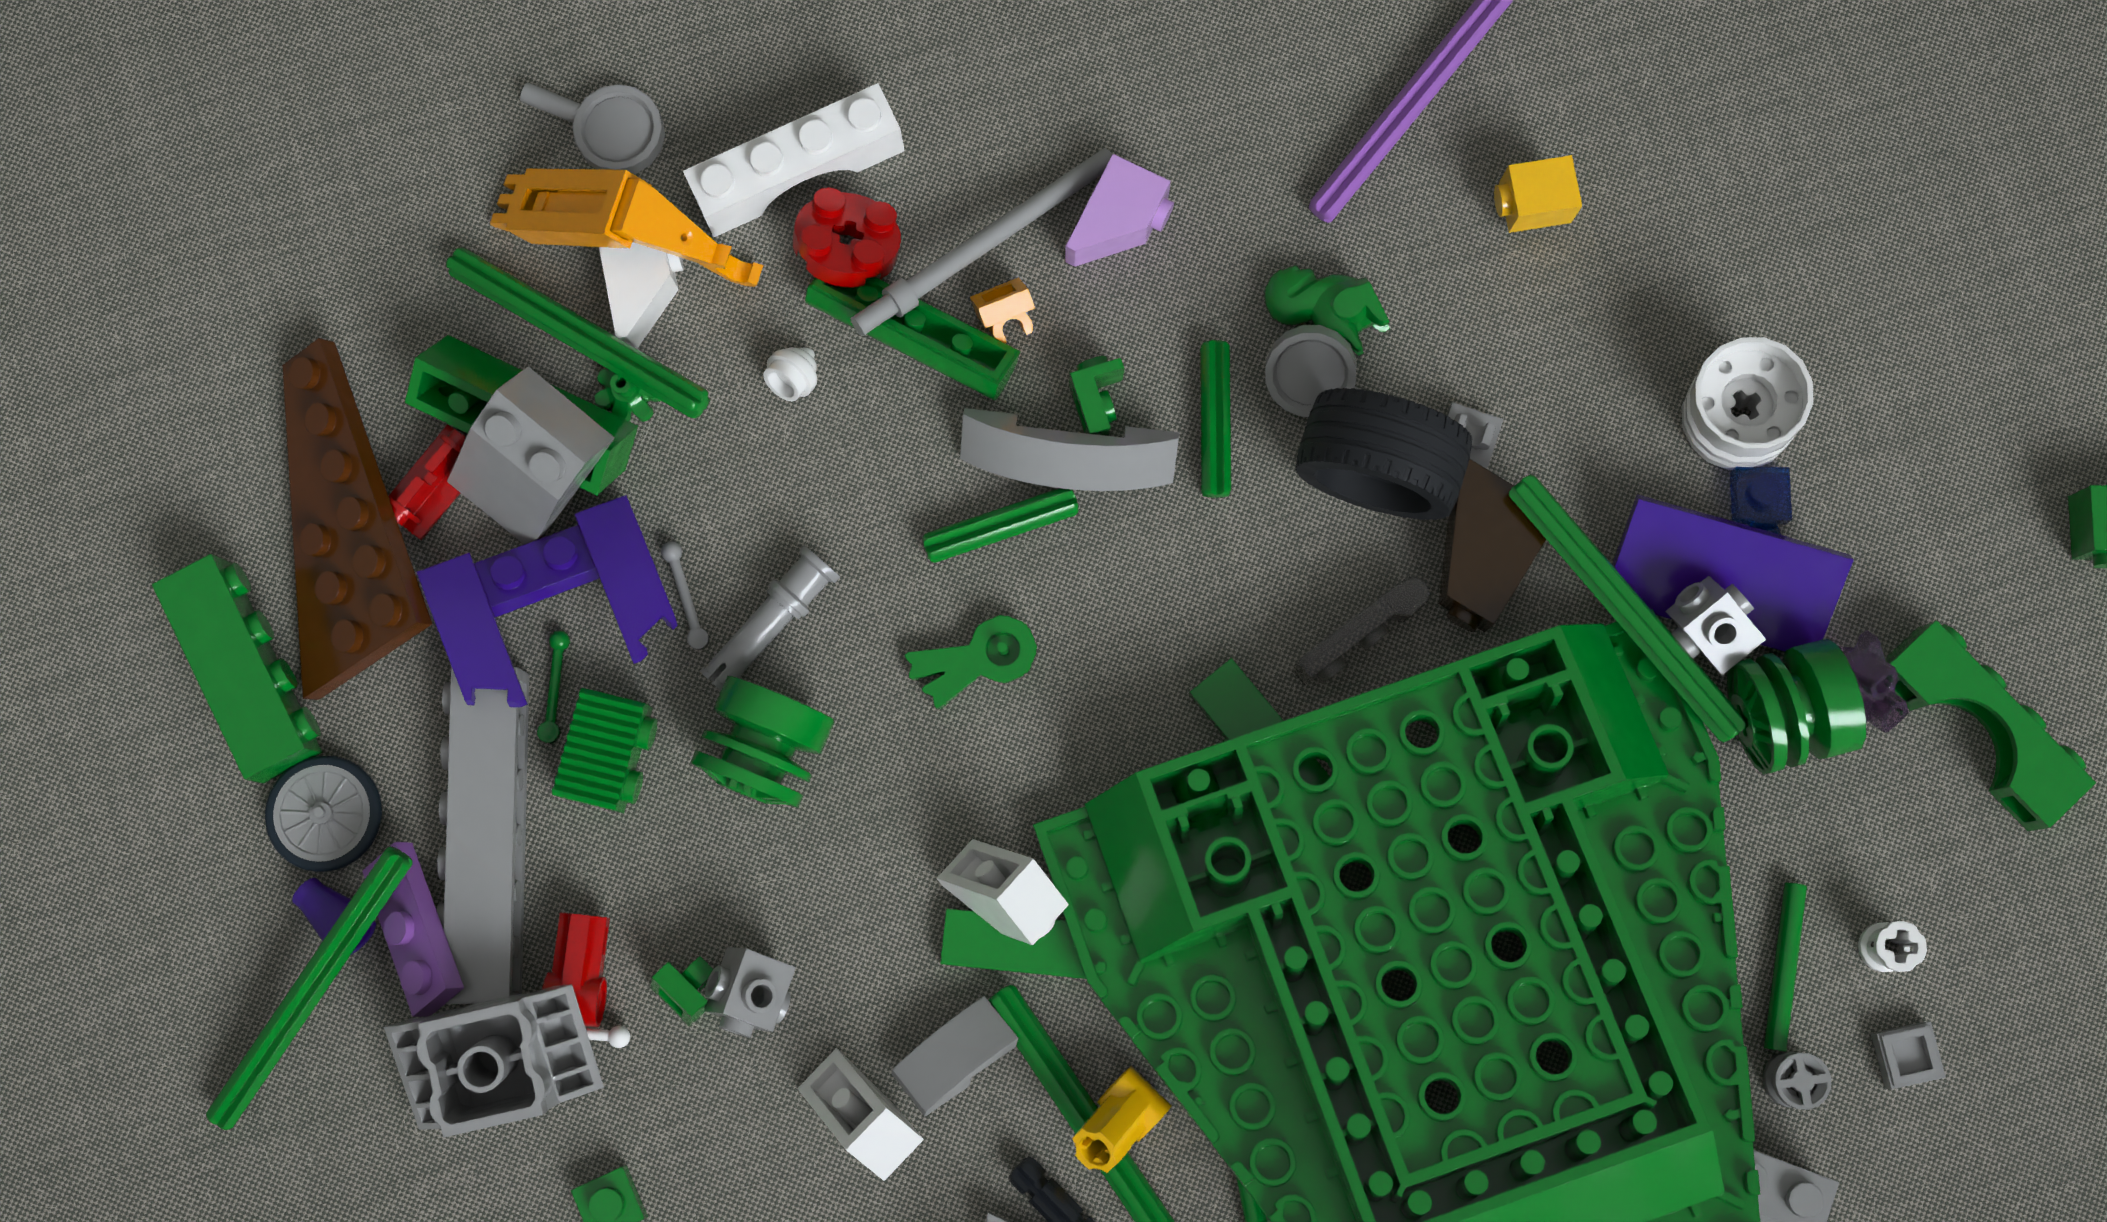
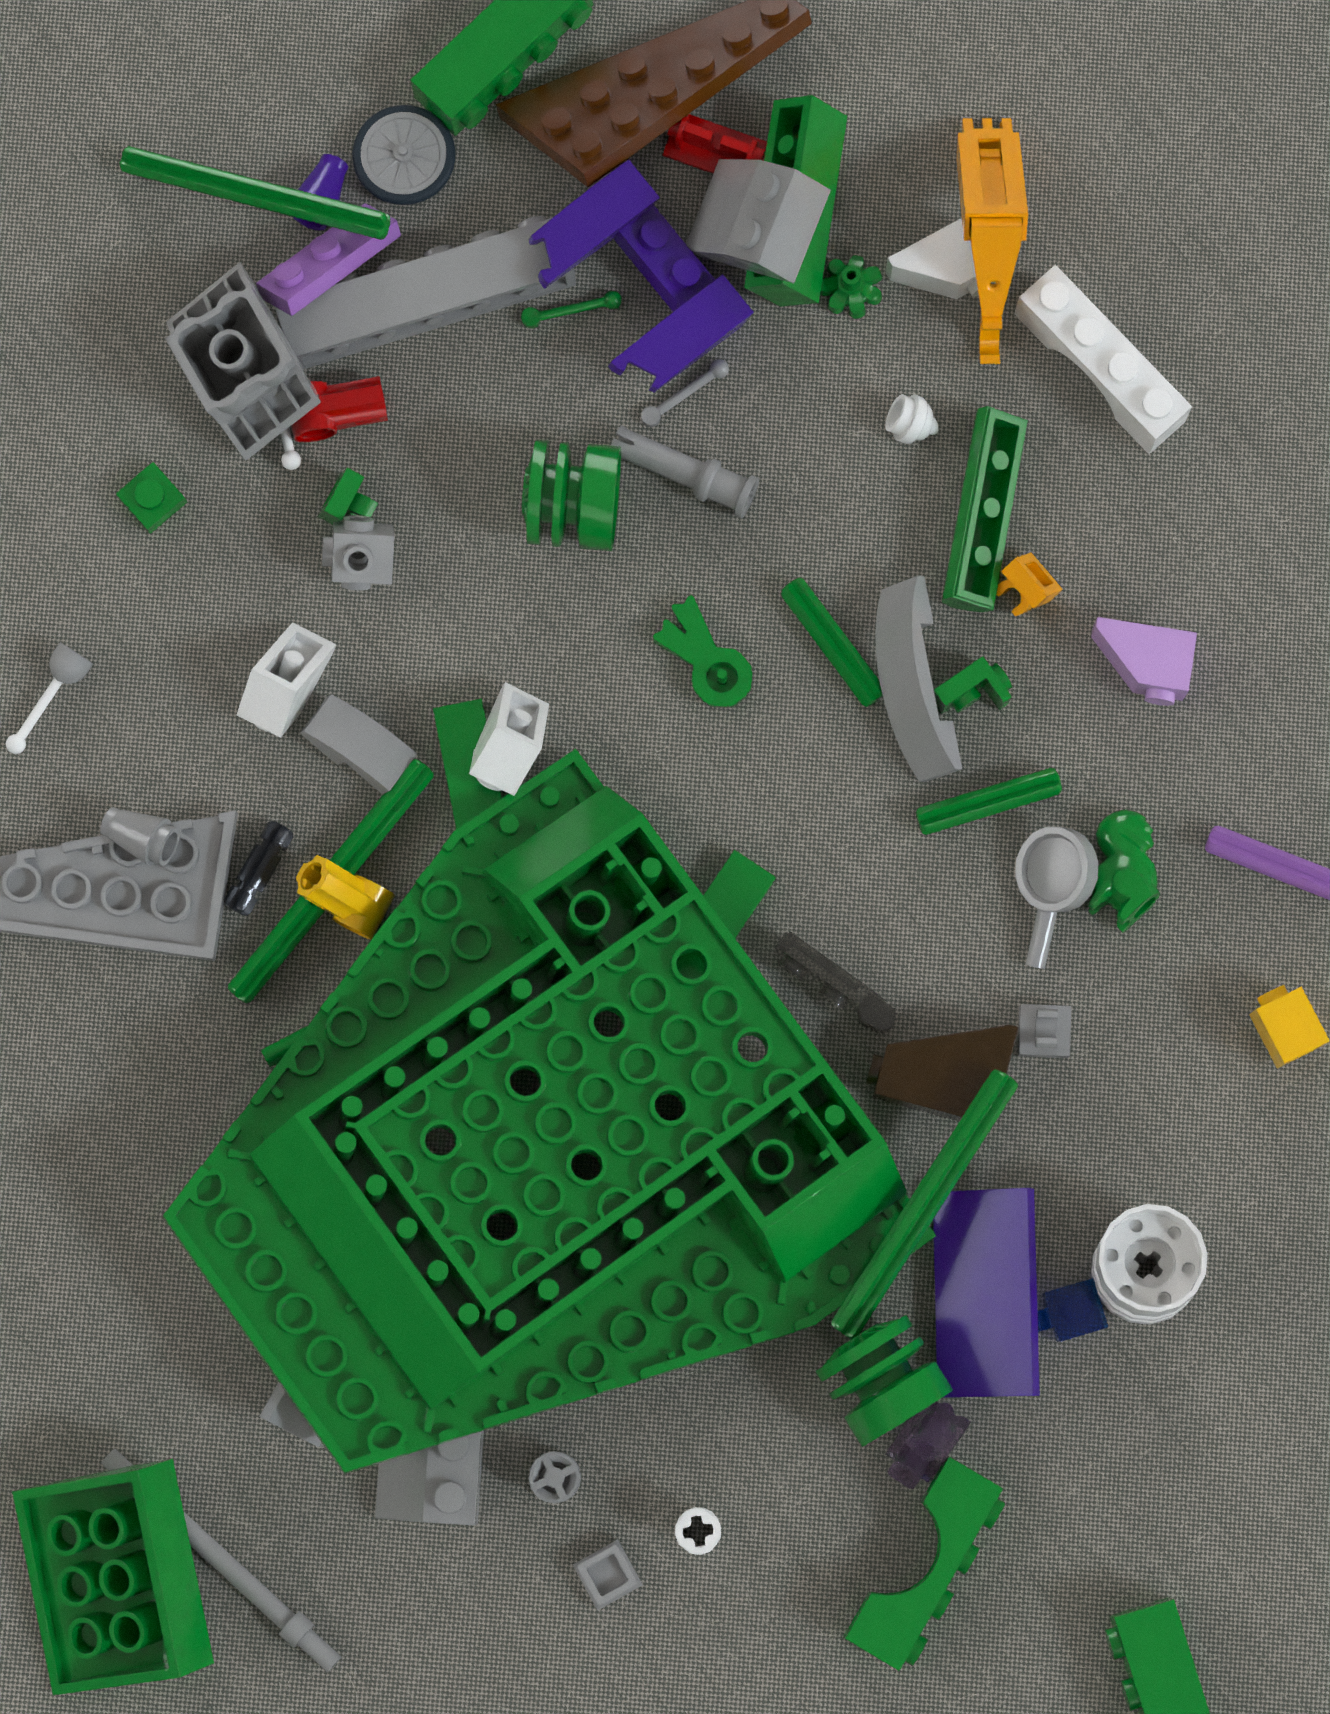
camera: 75 degrees right, 0 degrees up
(578, 333) = (883, 224): green axle -> none
(605, 751) = (527, 368): green brick -> none
(611, 127) = (1084, 194): light grey piece -> none
(844, 213) = (1070, 422): red plate -> none
(904, 295) = (1004, 489): light grey bar -> none
(1384, 453) = (993, 947): black tyre -> none
(1714, 624) = (935, 1287): light grey brick -> none
(1785, 966) = (653, 1444): green bar -> none

